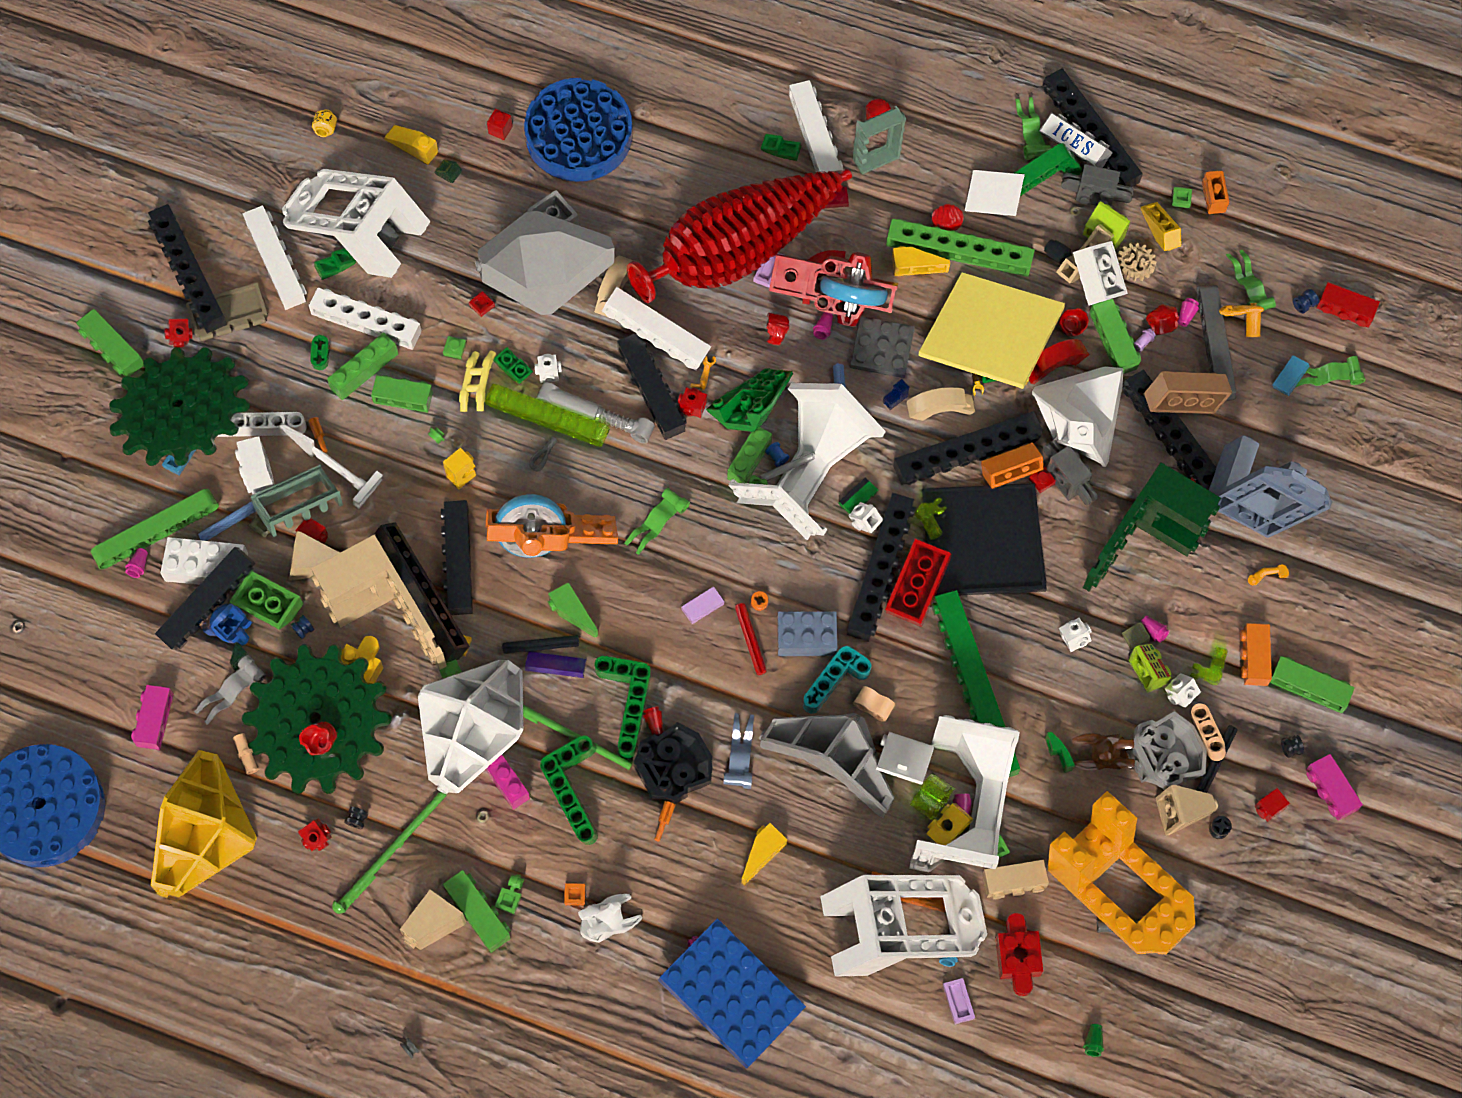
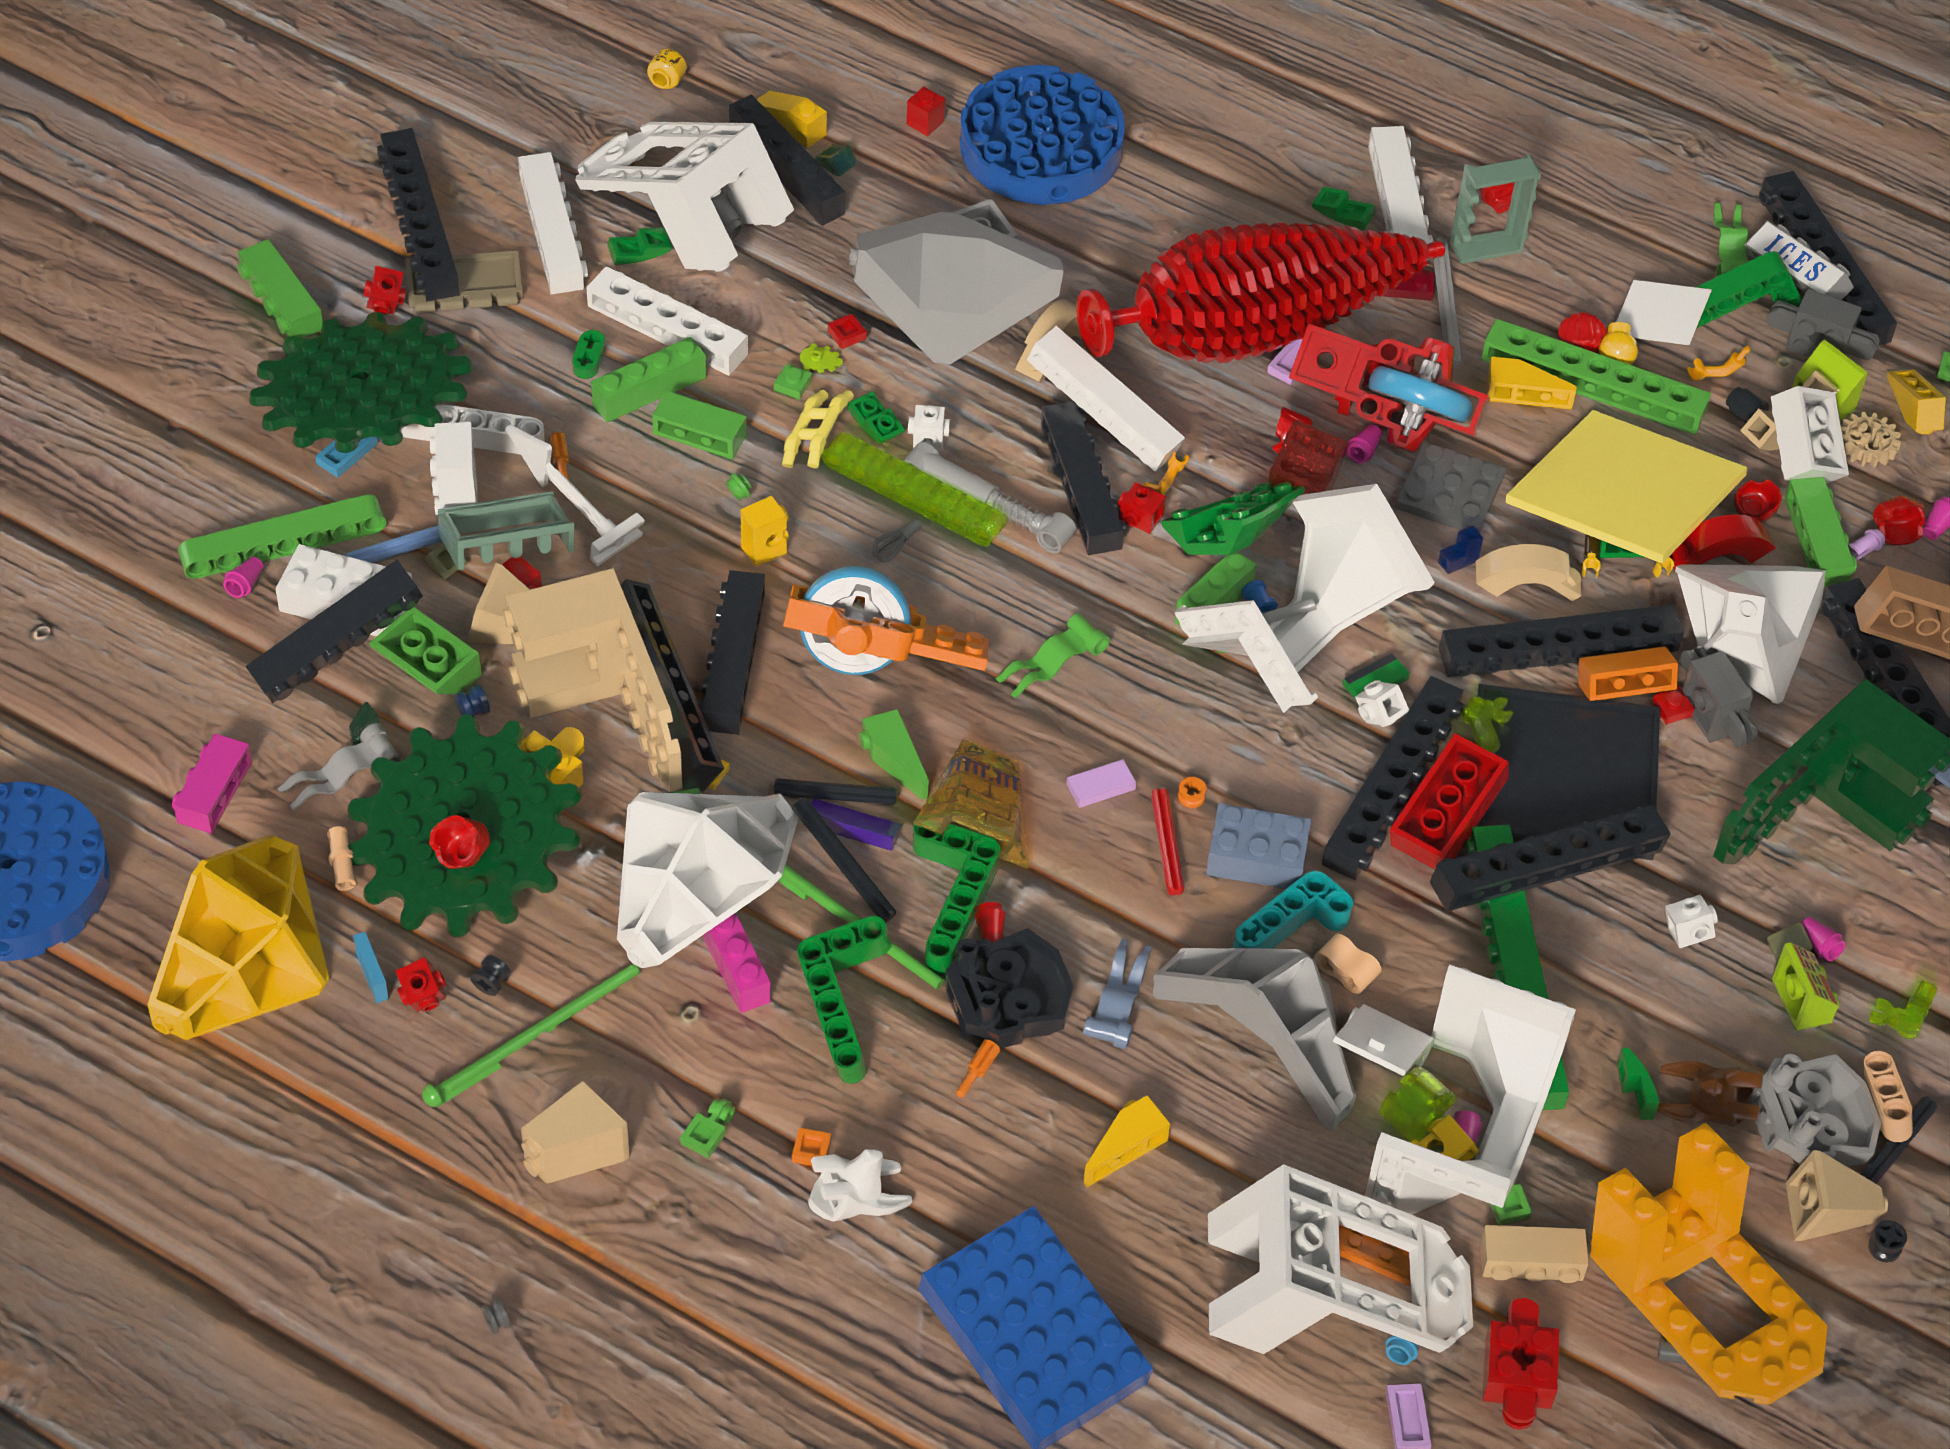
camera: 10 degrees right, 15 degrees down
(228, 624) = (359, 670): blue piece -> none
(281, 827) = (370, 967): none -> dark azure tile
(417, 179) = (793, 164): none -> black brick
(468, 327) = (820, 358): none -> lime piece
(477, 911) = (651, 1142): bright green brick -> none
(557, 695) = (843, 860): none -> black axle
(631, 635) = (982, 794): none -> clear yellow wedge
(792, 352) = (1308, 459): none -> clear red piece
(858, 210) = (1446, 302): none -> light grey axle
(932, 647) = (1549, 857): none -> black brick
(971, 222) = (1619, 343): none -> yellow piece
(1044, 219) = (1731, 365): none -> light orange piece
(1182, 690) = (1854, 1030): white brick -> none

